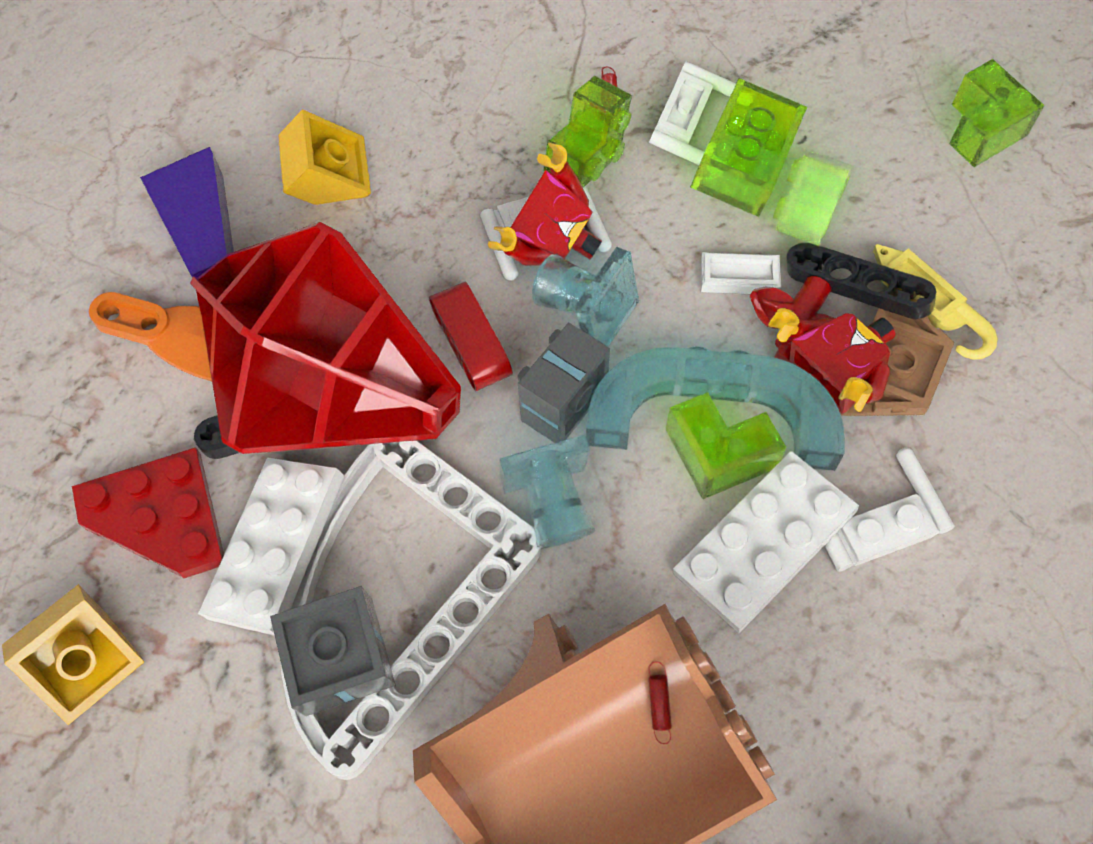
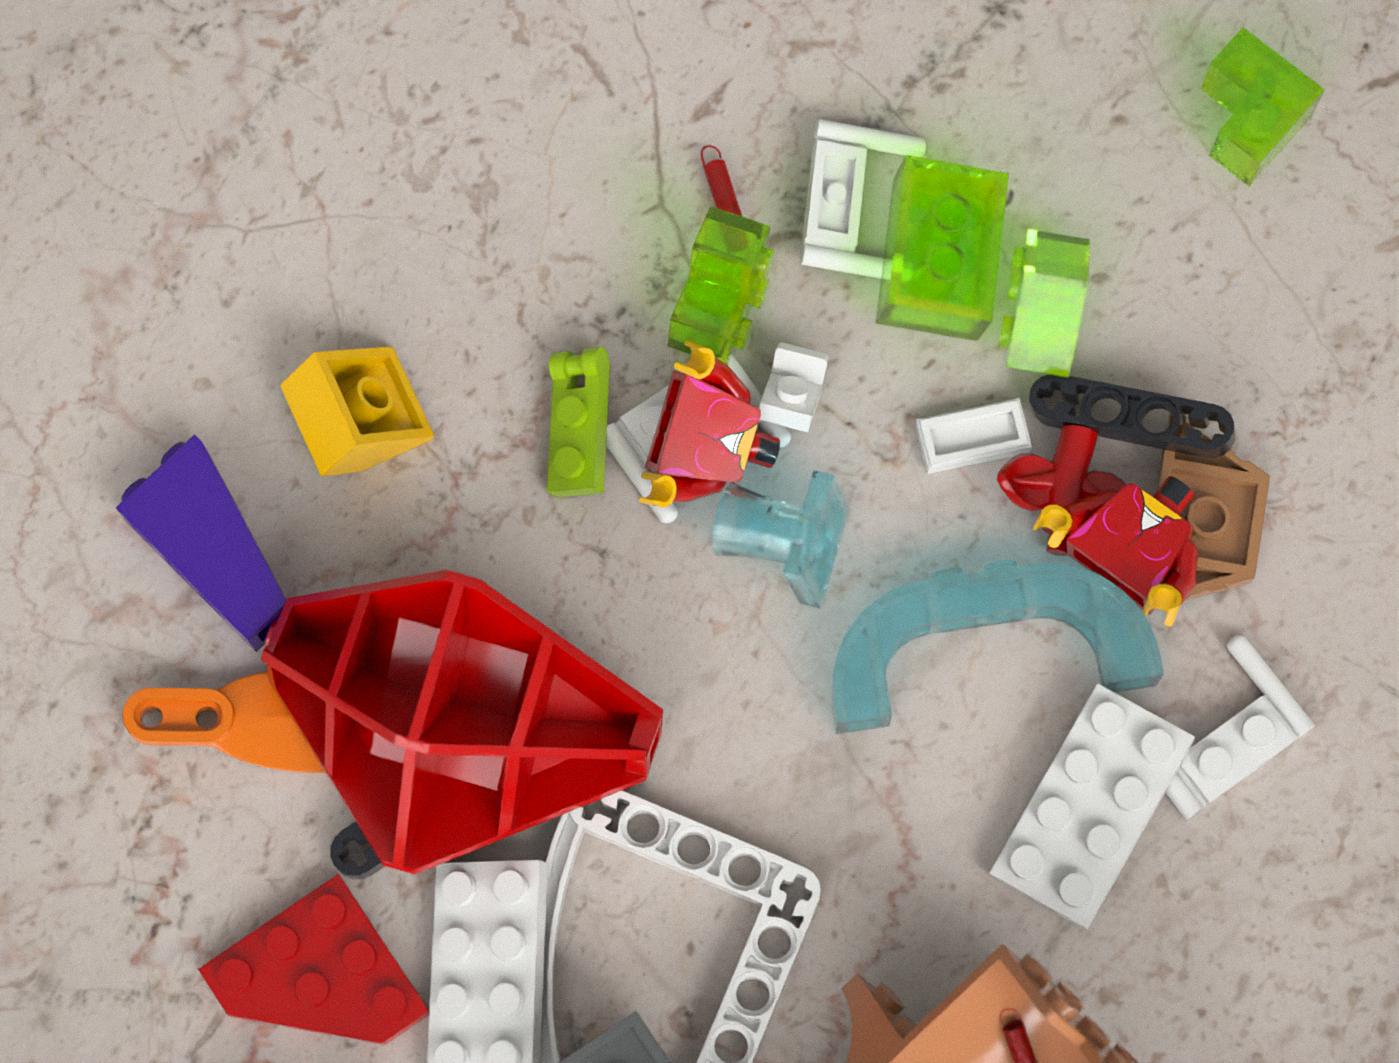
camera: 15 degrees left, 10 degrees up
(468, 203) = (578, 422): none -> lime plate
(470, 336) = (644, 623): red beam -> none
(551, 489) = (819, 820): clear light blue plant -> none
(562, 382) = (791, 669): dark grey container -> none
(623, 211) = (793, 387): none -> white bracket
(719, 454) = (1009, 714): clear neon green brick -> none
(950, 305) = (1254, 419): light yellow plate -> none

